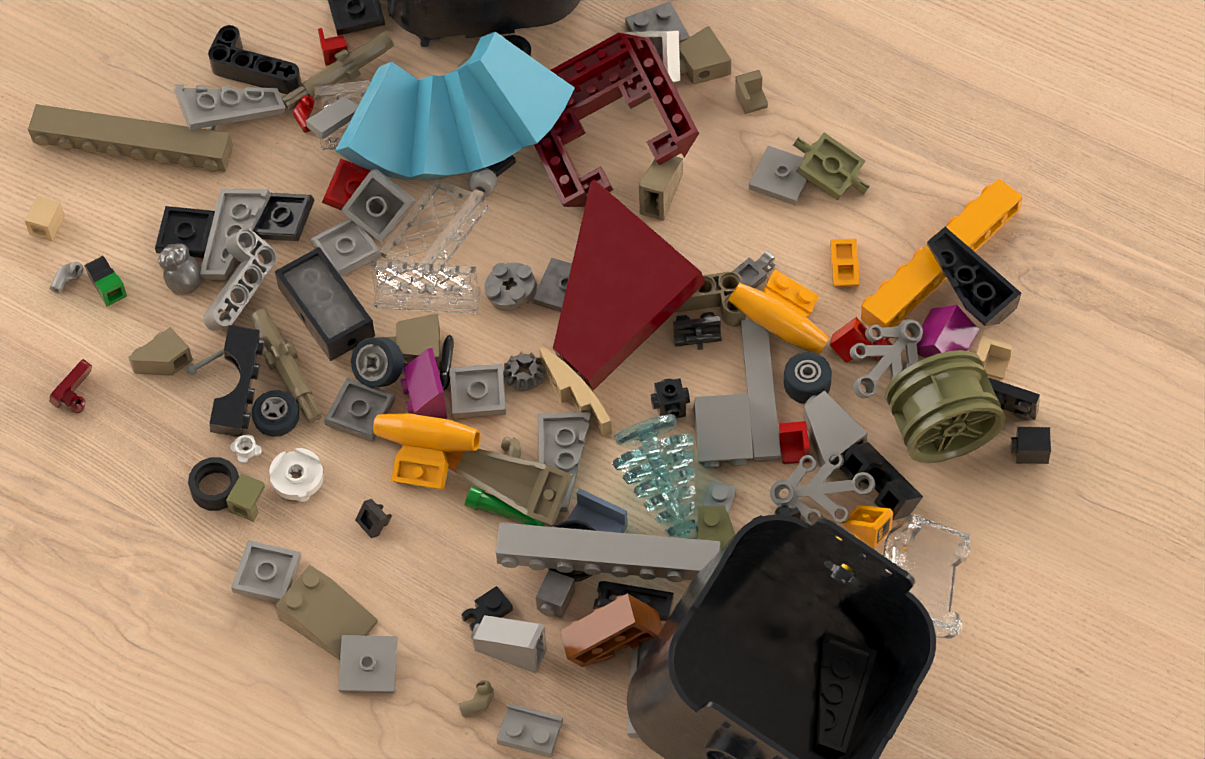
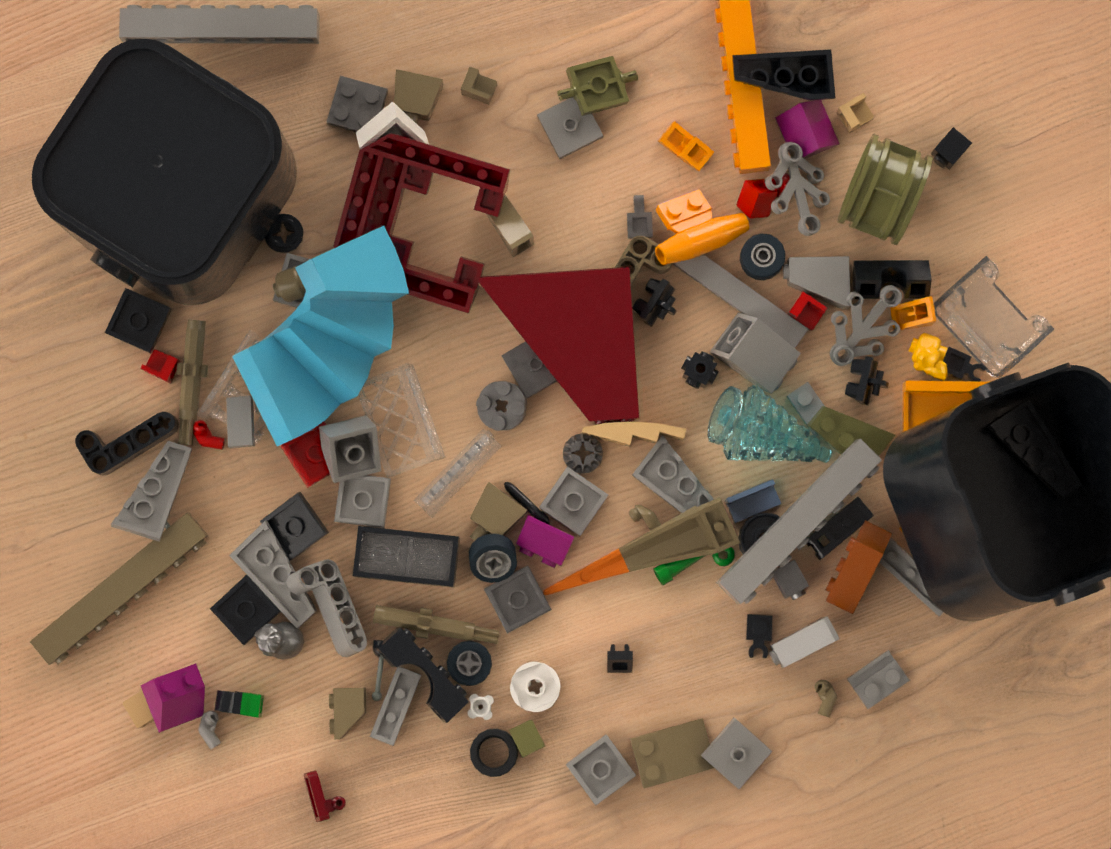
camera: 50 degrees left, 25 degrees up
(71, 227) = (175, 697): none -> magenta slope
(194, 387) = (395, 705): none -> light grey plate
(424, 446) = (596, 580): light orange plate -> none
(483, 180) = (394, 355): light grey piece -> none
(1016, 400) = (917, 127): black plate -> none

